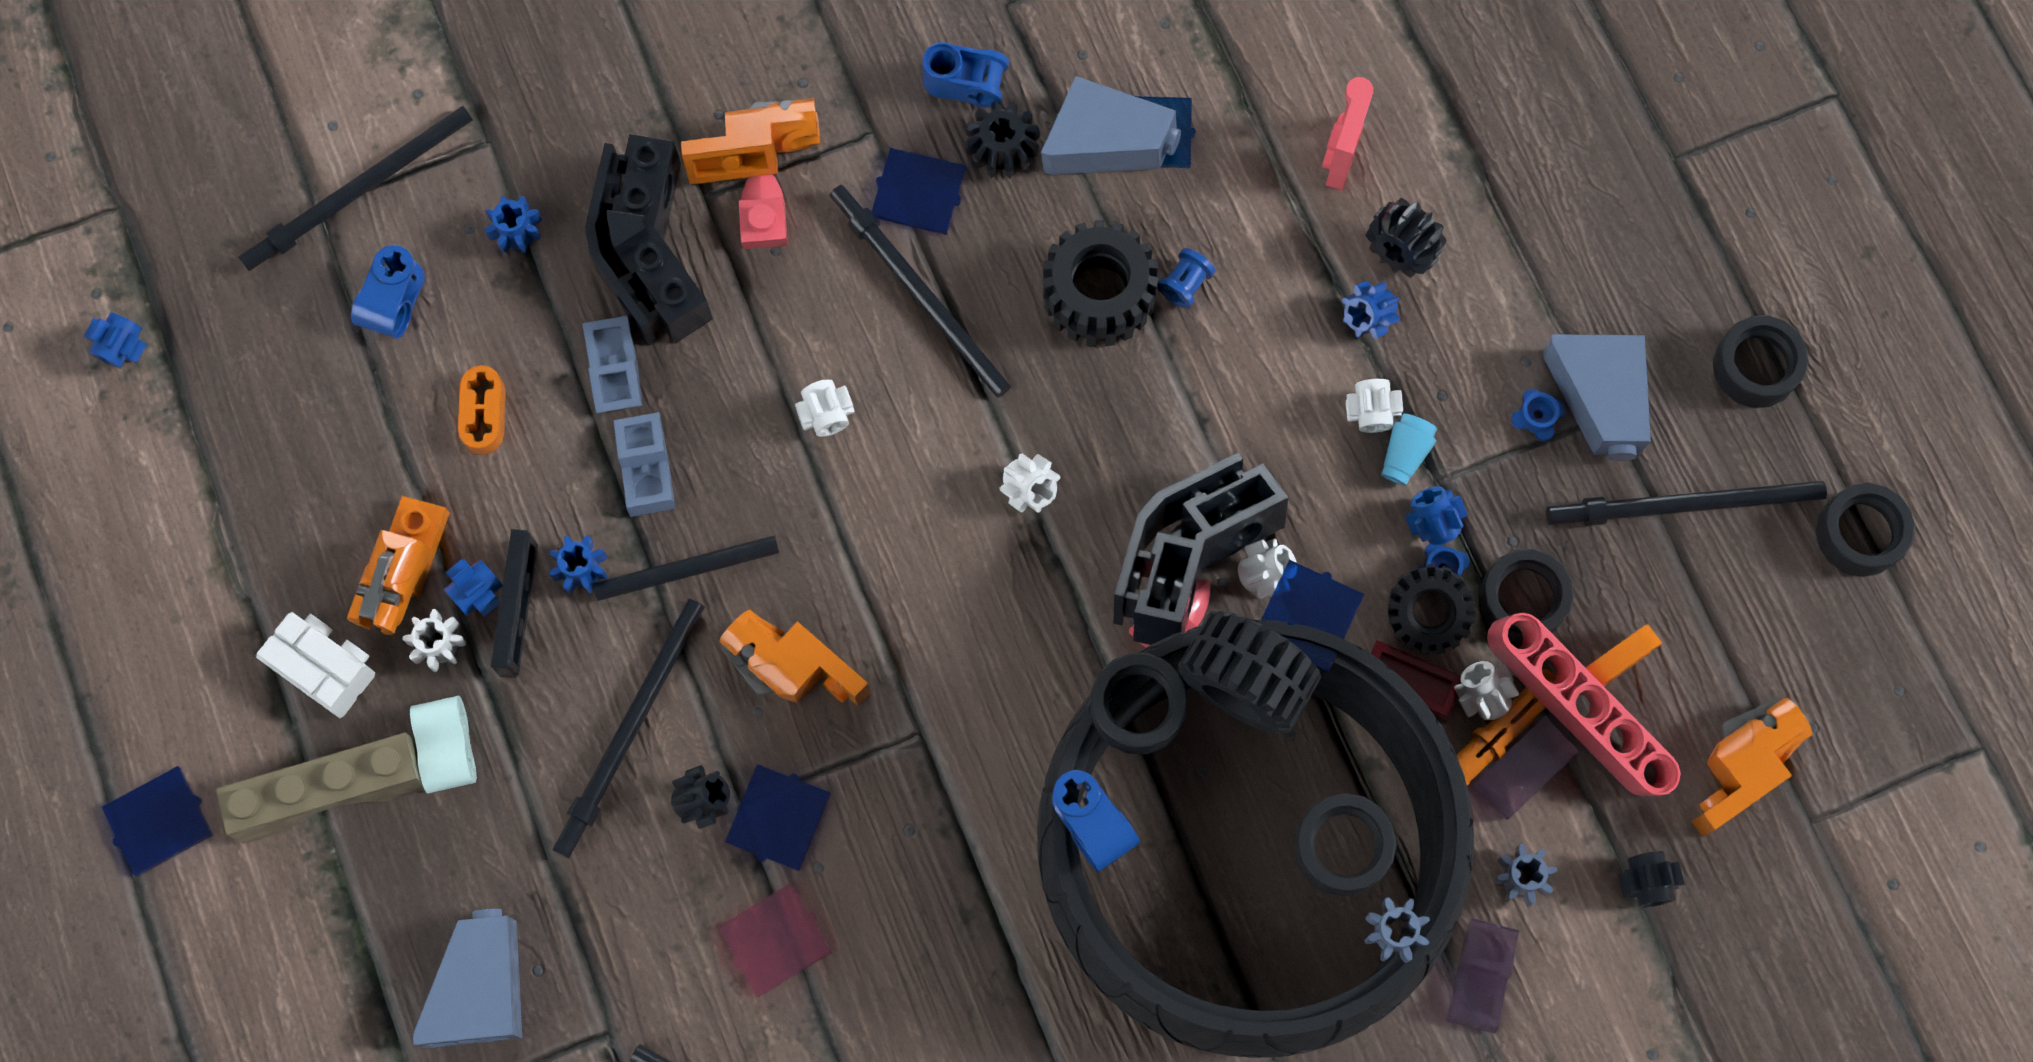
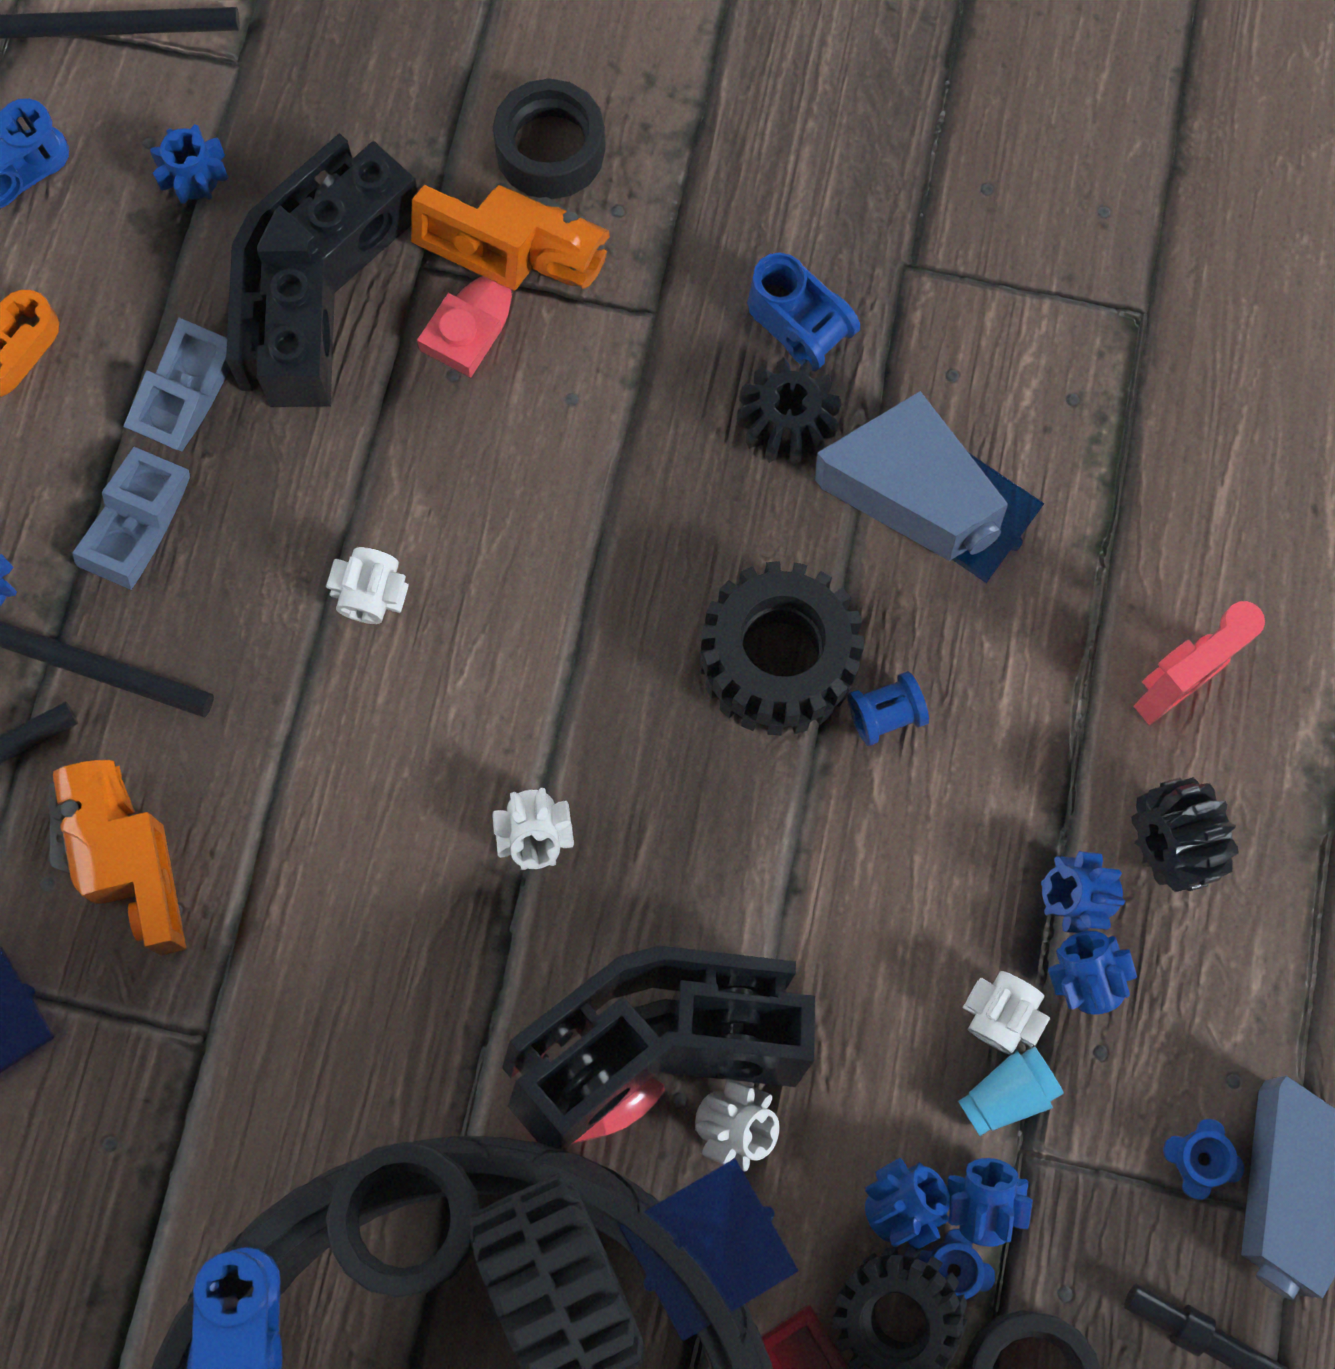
camera: 30 degrees right, 0 degrees up
(730, 33) = (540, 100): none -> black tyre
(866, 227) = (568, 411): black bar -> none
(918, 191) = (657, 410): clear blue piece -> none
(1392, 547) = (907, 1204): none -> blue gear
(1407, 350) = (1092, 972): none -> blue gear

